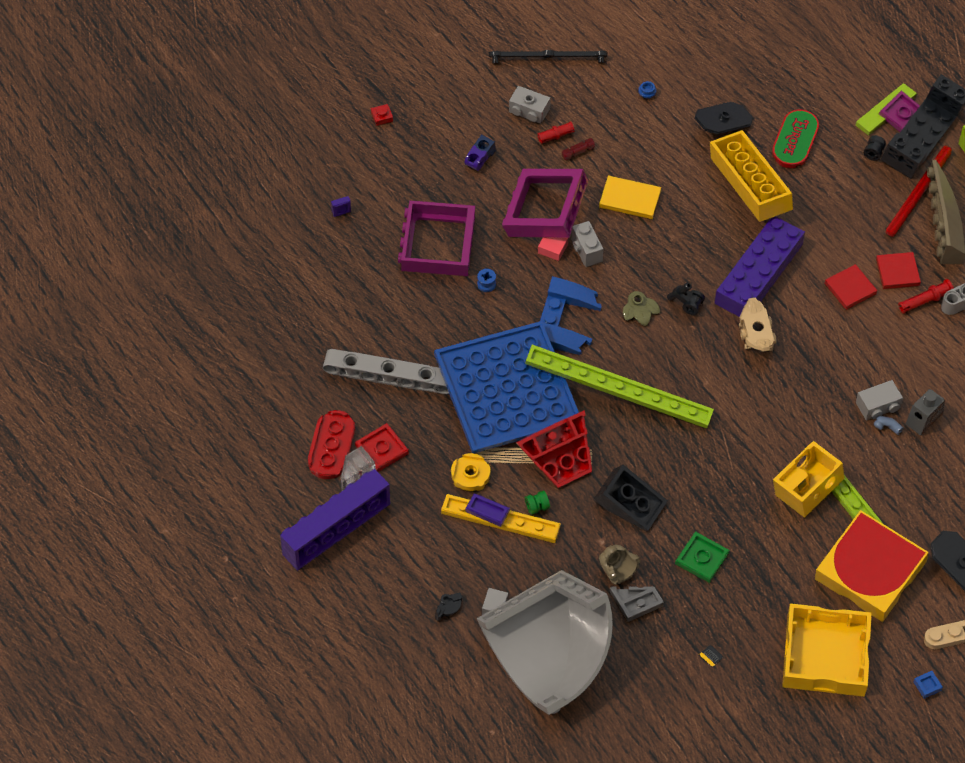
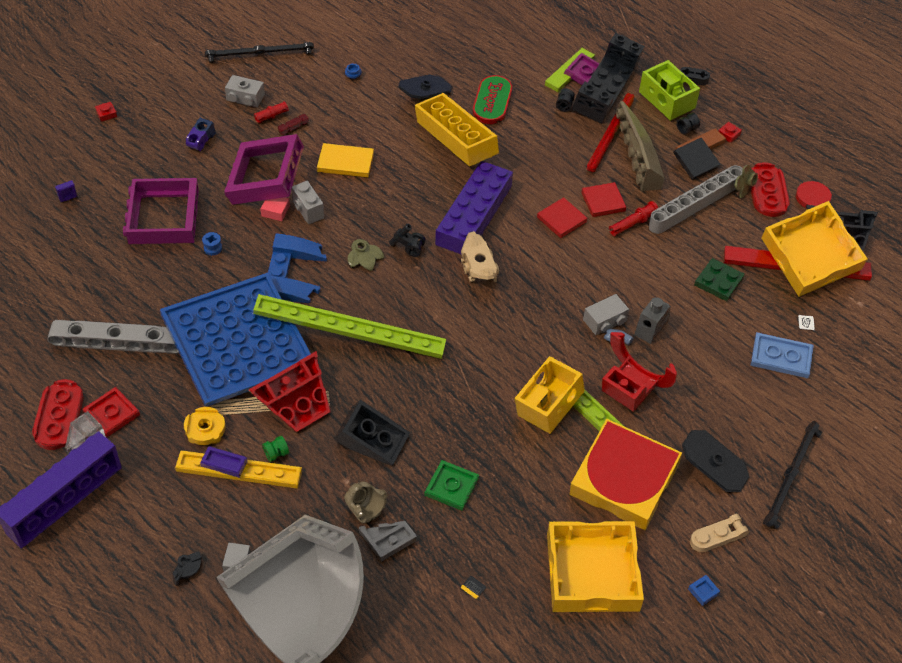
camera: 10 degrees left, 5 degrees down
(894, 473) = (631, 381): none -> red piece

